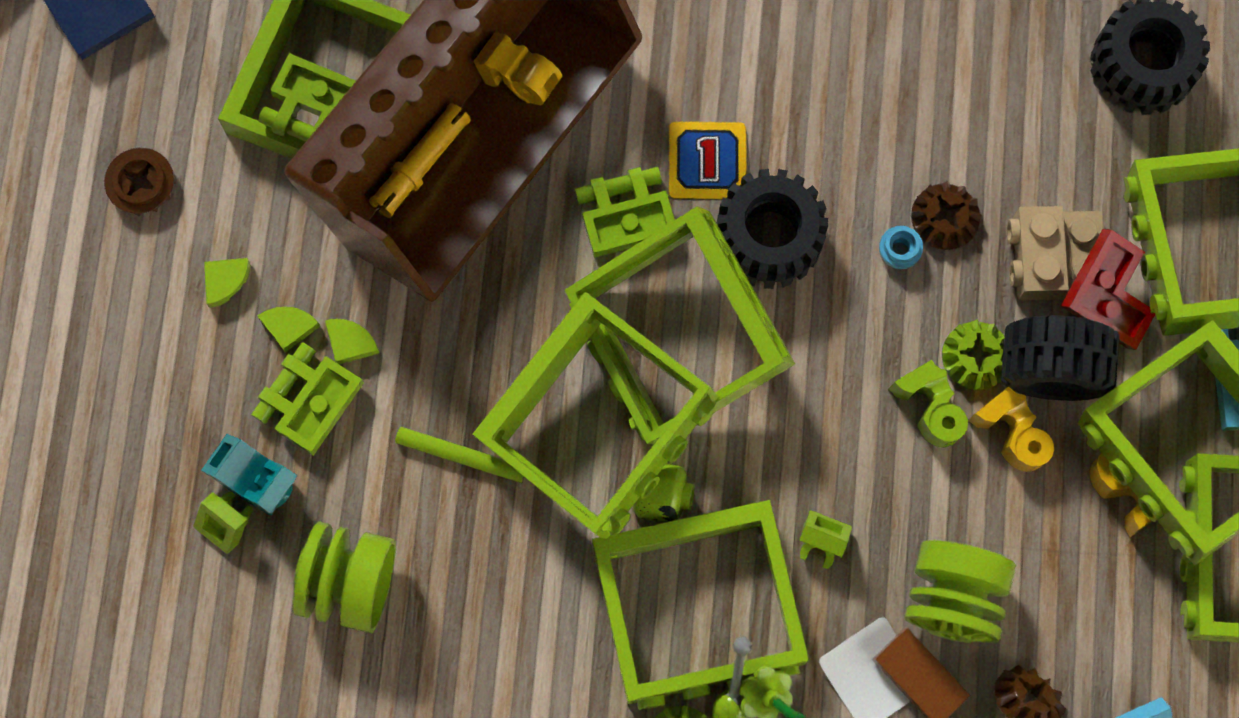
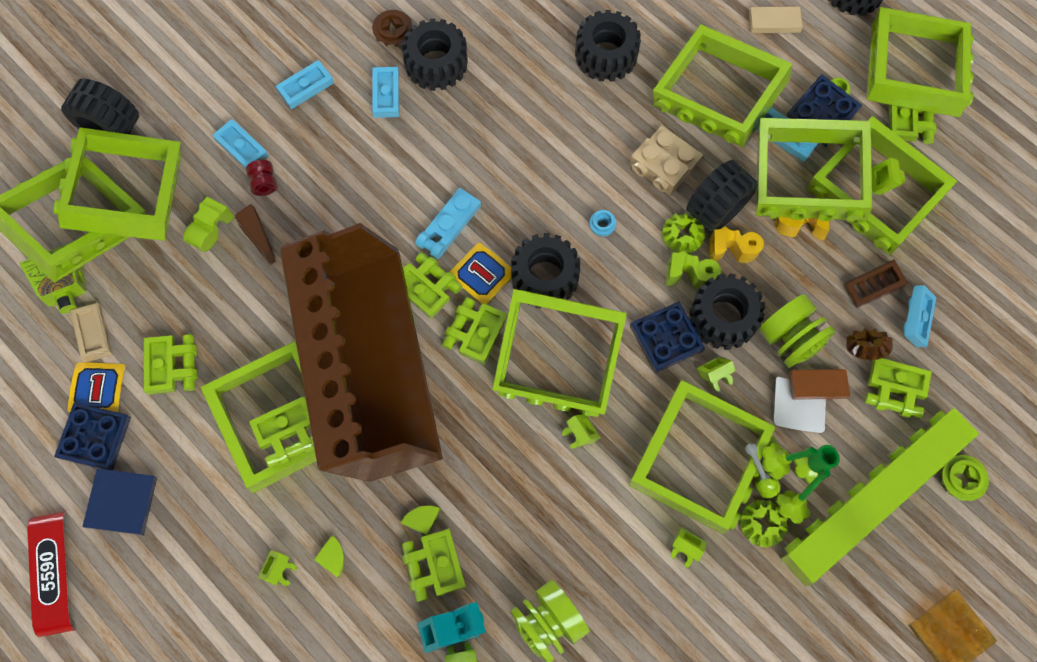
camera: 50 degrees left, 5 degrees down
(137, 163) = (227, 552): reddish brown gear -> none
(160, 227) = (274, 567): none -> lime tile
(288, 325) = (385, 544): lime tile -> none
(409, 173) = (362, 408): yellow pin -> none
(457, 453) = (529, 511): lime bar -> none
(525, 73) = (366, 317): yellow leg -> none
(544, 371) = (527, 434): lime window -> none
(574, 671) = (688, 544): none -> lime tile
(609, 435) = (583, 431): none -> lime tile
(619, 111) = (422, 292): none -> lime plate
(669, 496) = (632, 429): lime head -> none
(735, 68) = (448, 223): none -> medium azure plate
(820, 443) = (667, 337): none -> dark blue tile
(938, 461) = (736, 293): none -> black tyre
(942, 233) = (593, 195): reddish brown gear -> none
(1100, 289) = (699, 152): red plate -> none
(1148, 640) = (895, 274): none -> reddish brown slope

